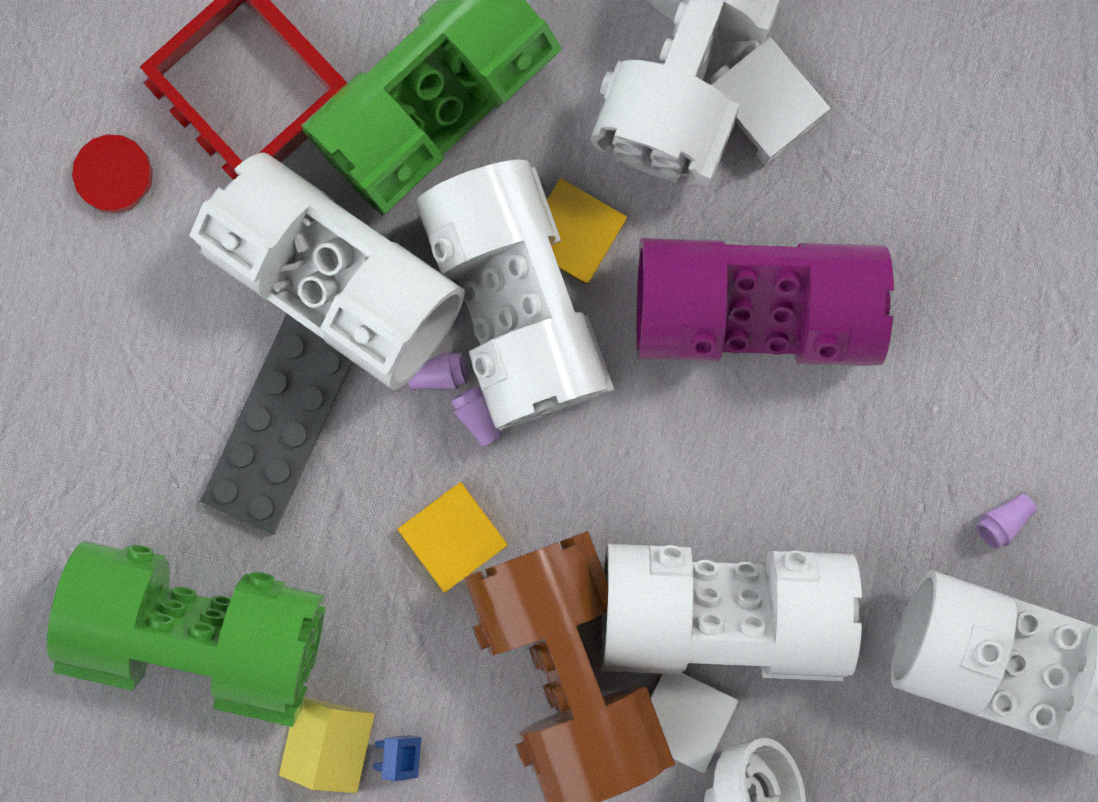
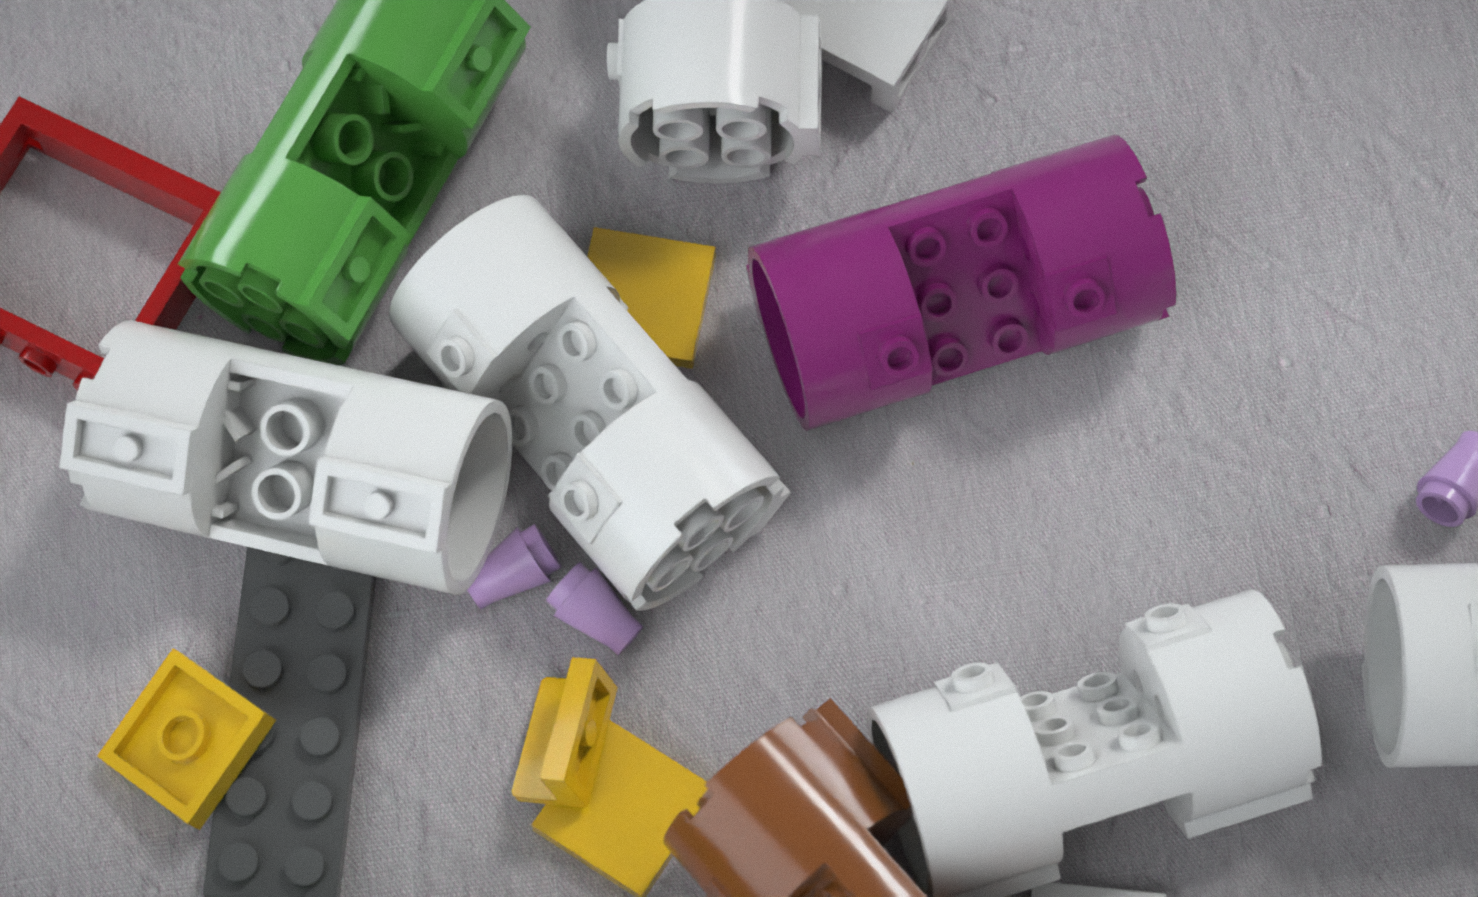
camera: 15 degrees left, 15 degrees down
(219, 408) = (186, 739): none -> yellow tile
(433, 486) = (566, 736): none -> yellow panel

